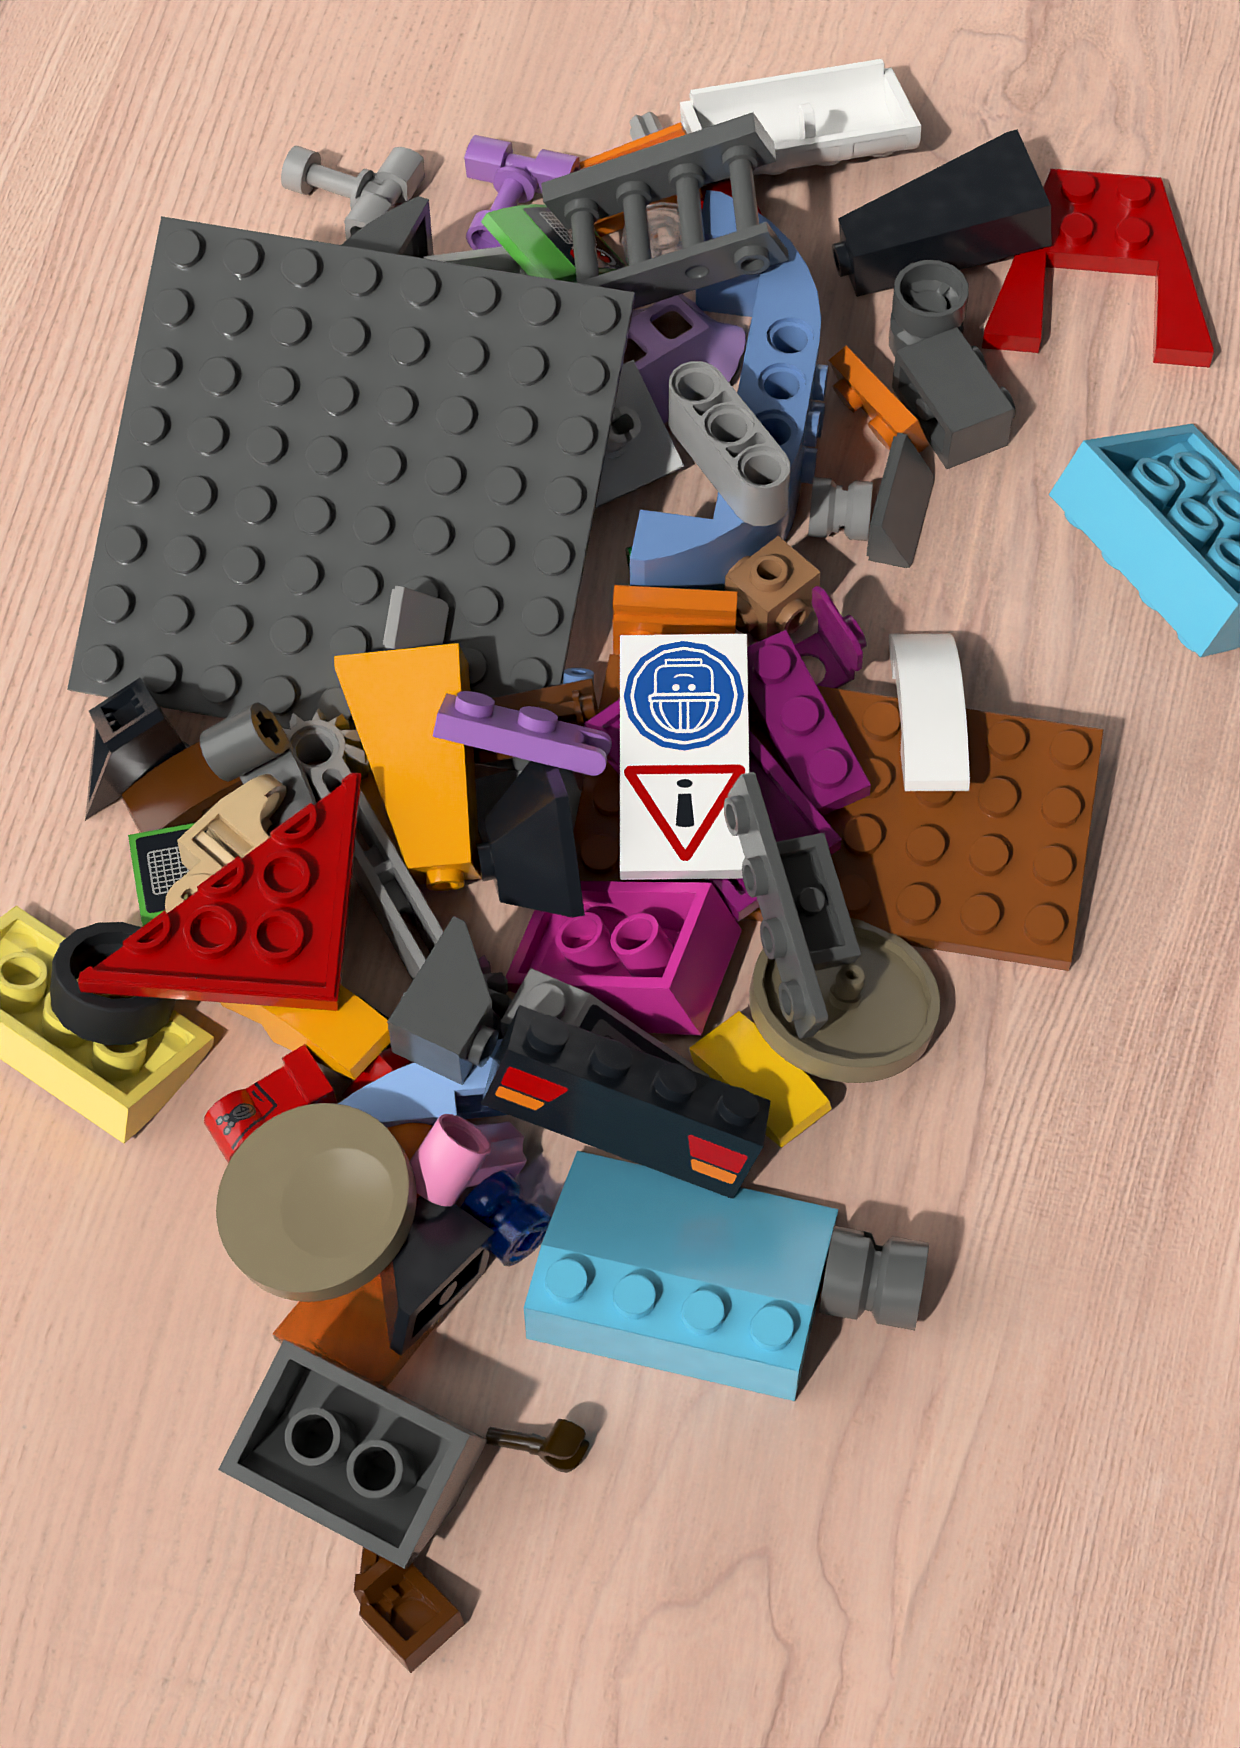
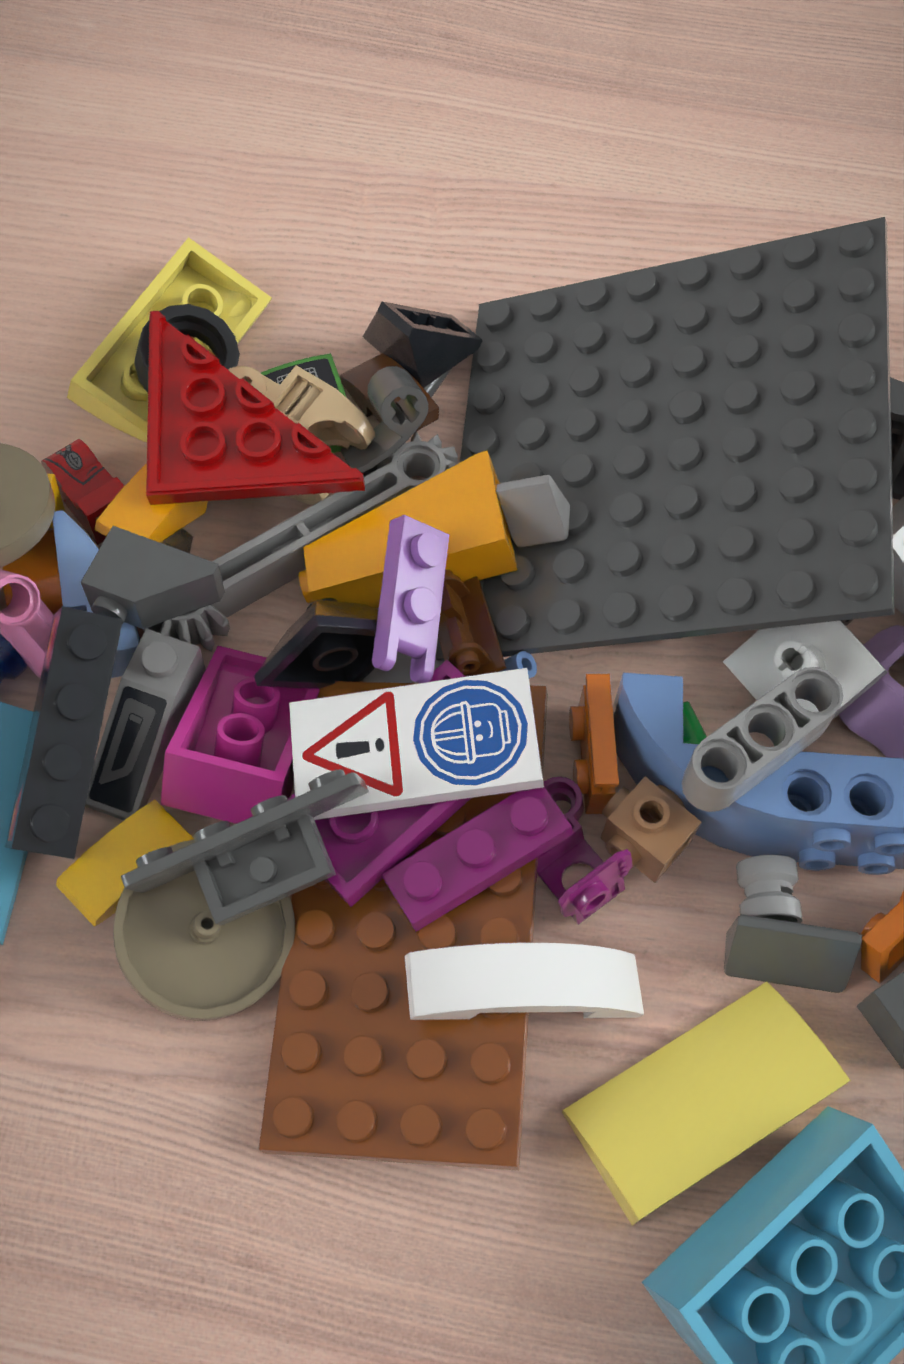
camera: 80 degrees right, 5 degrees up
(1036, 594) = (703, 1100): none -> light yellow slope

